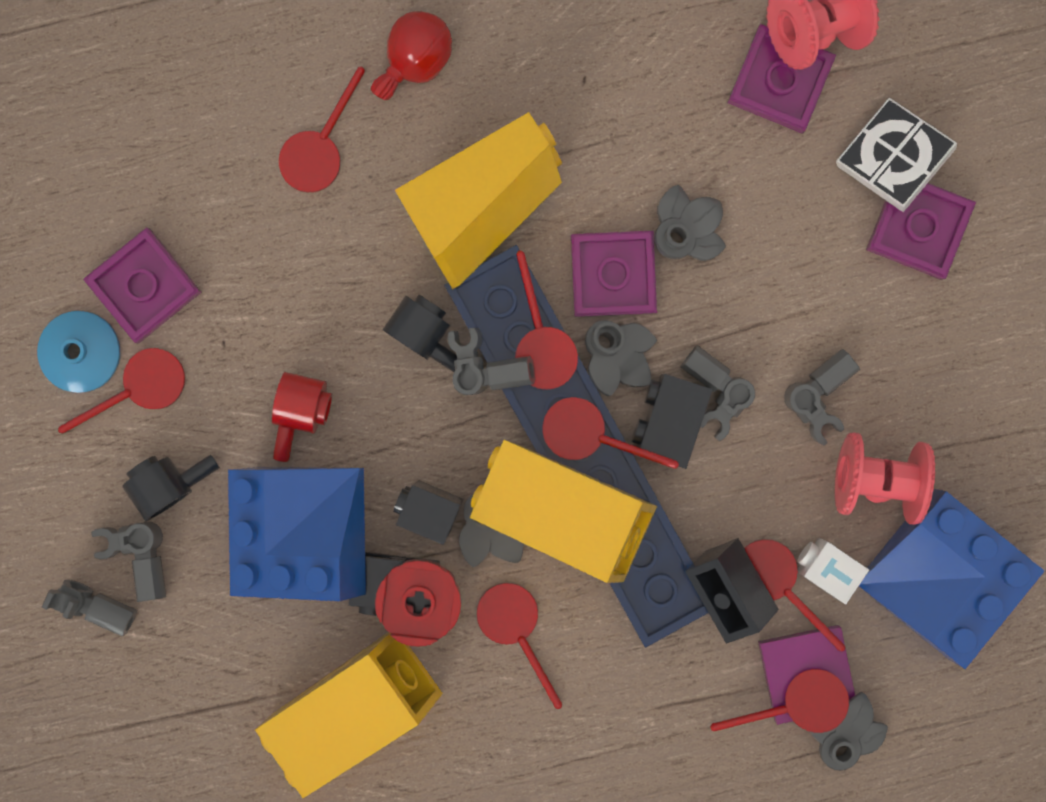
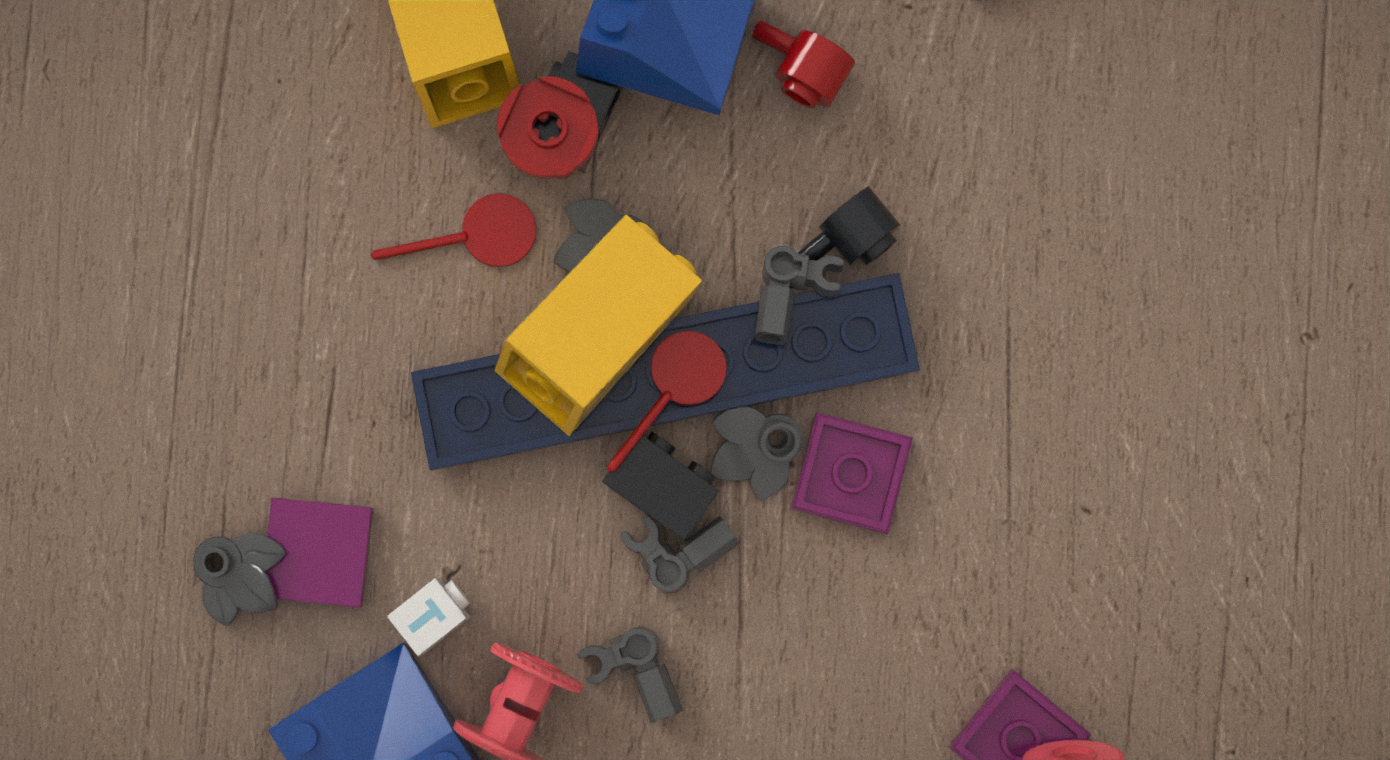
camera: 105 degrees right, 5 degrees down
(310, 158) = (1089, 170): red piece -> none
(416, 52) = (1176, 326): red hair -> none
(427, 511) = (646, 172): black brick -> none
(482, 195) = (986, 343): yellow slope -> none
(550, 348) = (788, 369): red piece -> none
(693, 222) = (883, 584): dark grey plate -> none
(732, 591) = (444, 491): black brick -> none
(779, 573) = (448, 544): red piece -> none
(813, 701) = (285, 546): red piece -> none

